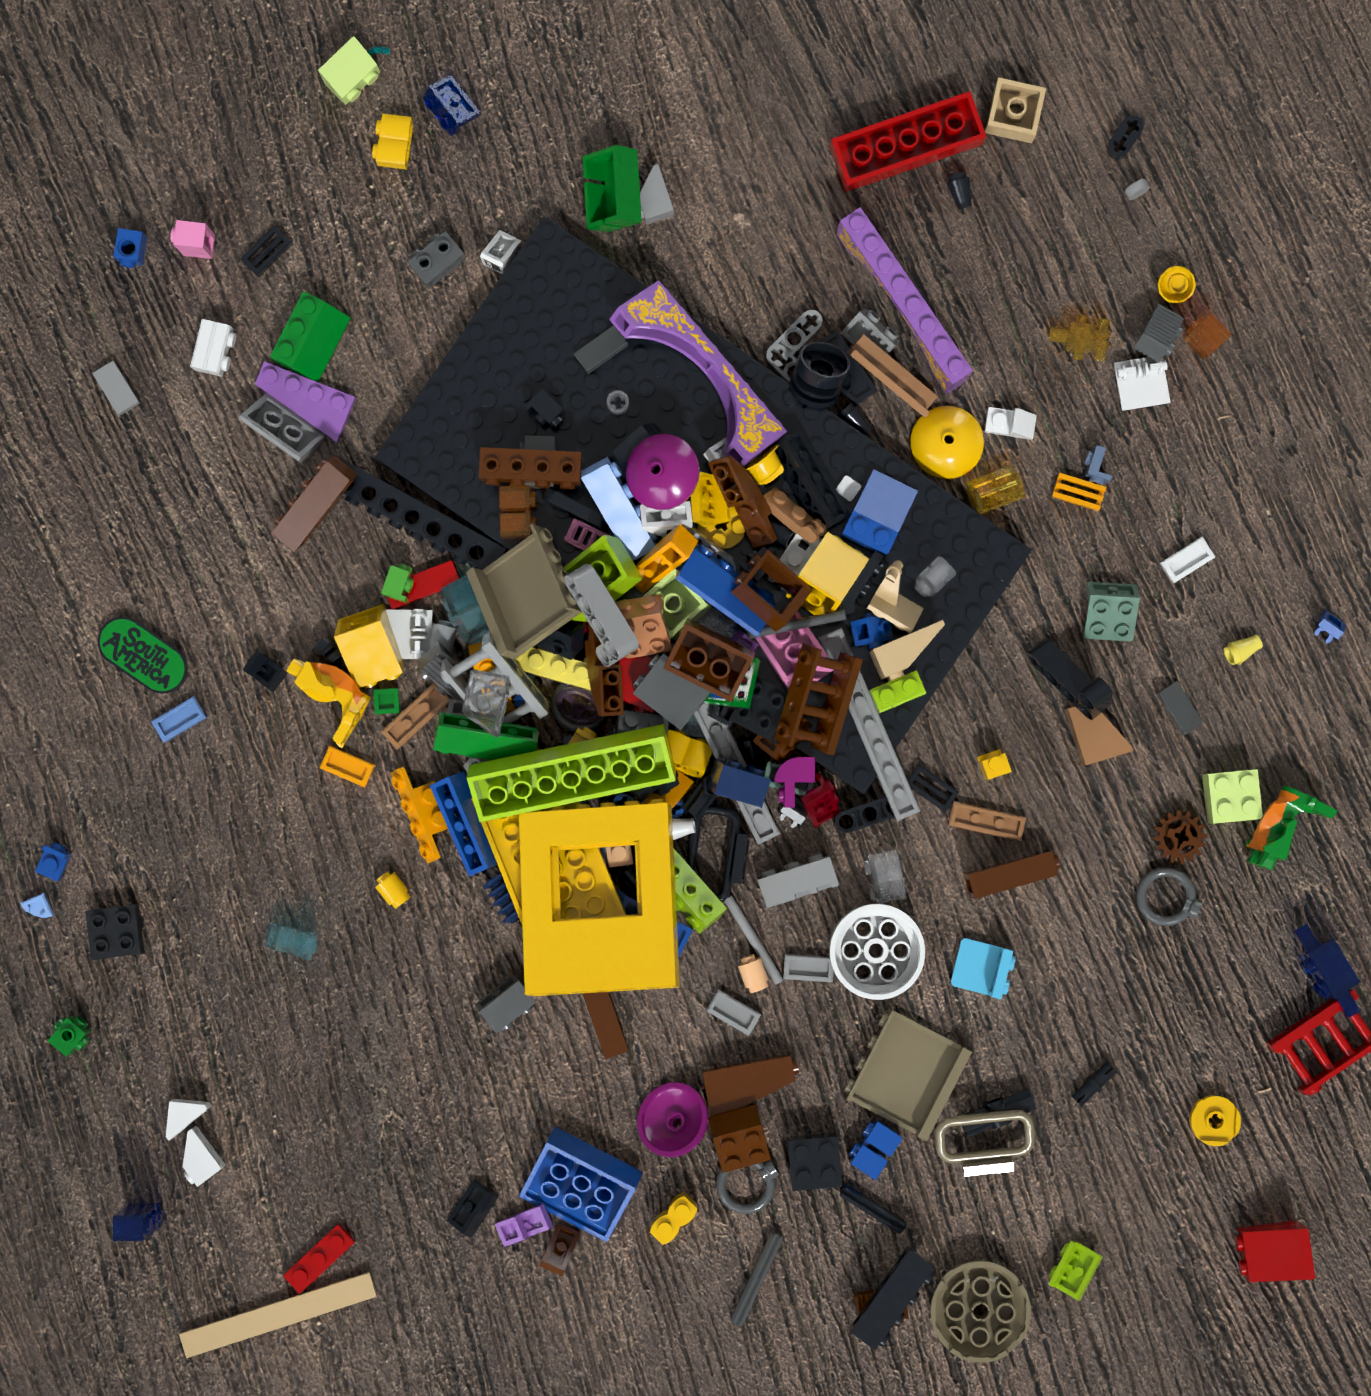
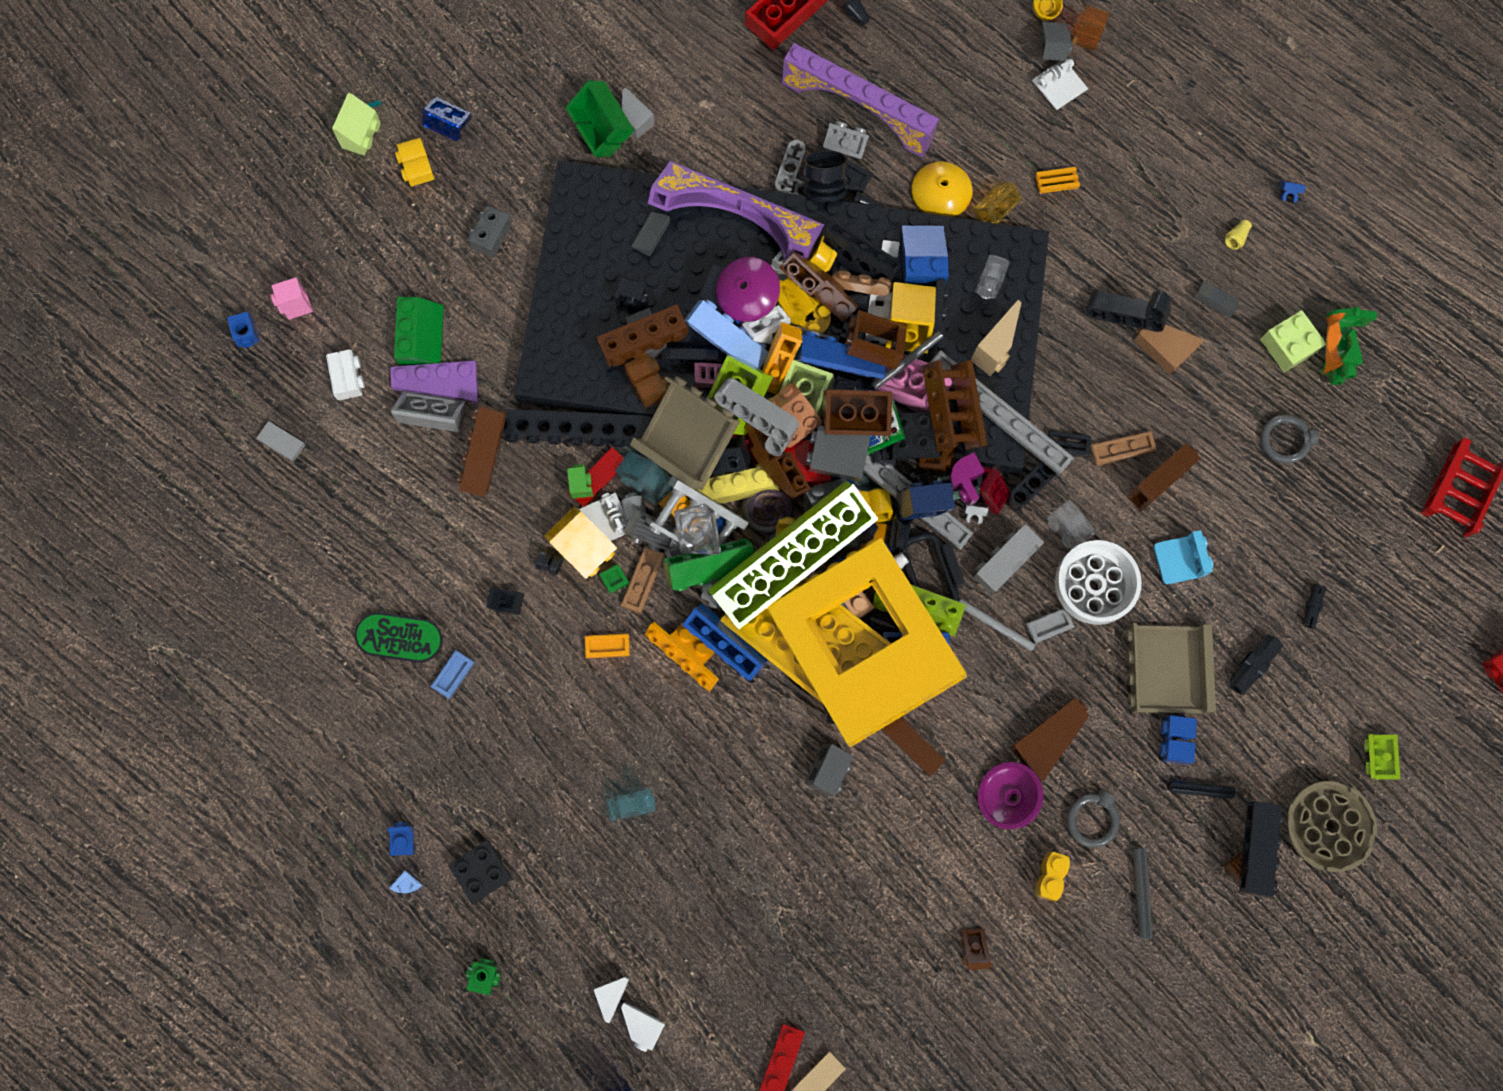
camera: 35 degrees left, 10 degrees down
(281, 250) = (347, 302): black tile -> none
(331, 684) = (565, 584): yellow hips -> none
(392, 889) = (692, 724): yellow brick -> none
(472, 1208) = (886, 953): black slope -> none
(500, 251) = (536, 206): white slope -> none
(503, 899) = (786, 687): dark blue piece -> none
(523, 1224) = (935, 945): medium lavender slope -> none
(581, 1184) = (964, 887): blue slope -> none
(612, 407) = (685, 259): clear bush -> none
(733, 1012) = (1010, 689): light grey tile -> none
(739, 1138) = (1071, 783): reddish brown brick -> none
(753, 973) = (1010, 649): light nougat brick -> none
(814, 1161) = (1138, 774): black brick -> none
(871, 631) = (965, 338): blue brick -> none
(891, 605) = (965, 311): tan plate -> none
(892, 374) = (878, 157): medium nougat fence -> none
(897, 692) = (1009, 375): lime brick -> none
(991, 1160) = (1269, 704): dark tan bar -> none
(994, 764) = (1106, 402): yellow brick -> none
(1010, 423) = (980, 155): white slope -> none
(1080, 337) = (1000, 71): clear yellow piece -> none
(1093, 461) = (1057, 153): sand blue bracket -> none
(1111, 611) = (1130, 252): sand green bracket -> none
(1183, 827) = (1271, 390): reddish brown gear -> none
(1187, 560) = (1162, 192): white tile -> none
(1203, 1129) = (1410, 597): yellow plate -> none
(1328, 970) = (1438, 430): clear blue brick -> none

